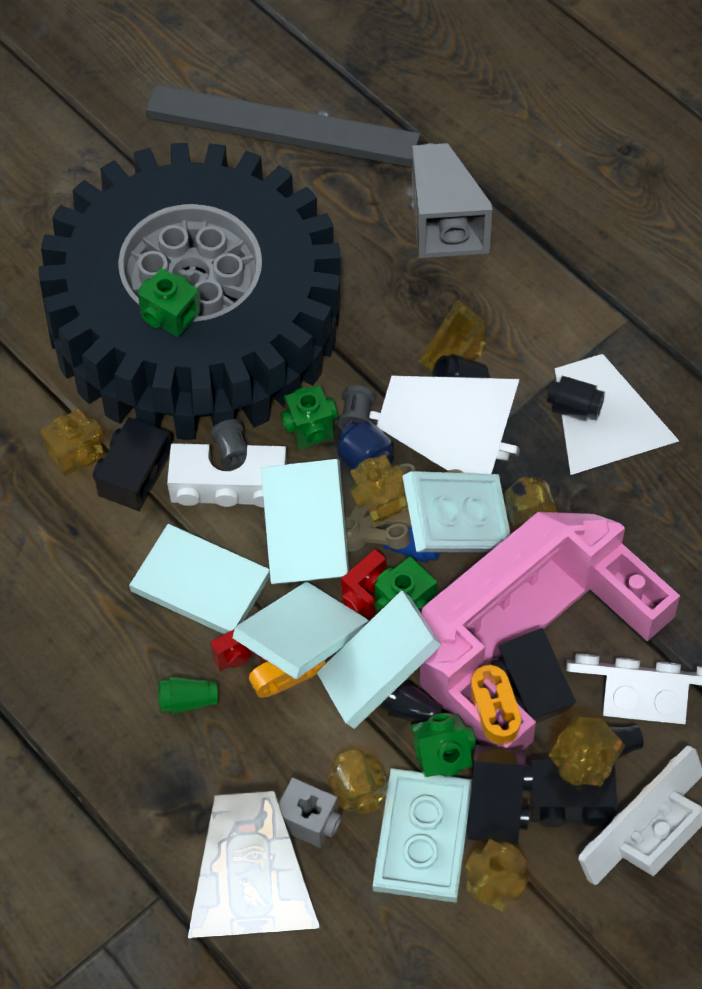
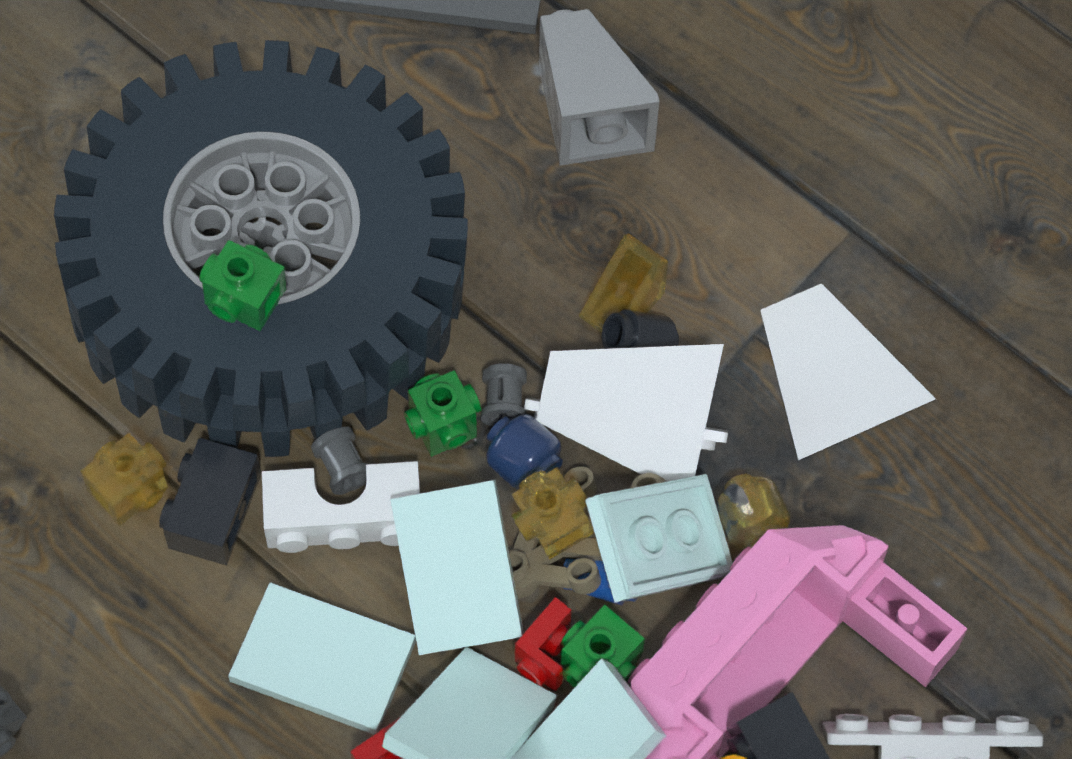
camera: 10 degrees left, 5 degrees up
(576, 398) = (796, 355): black brick -> none

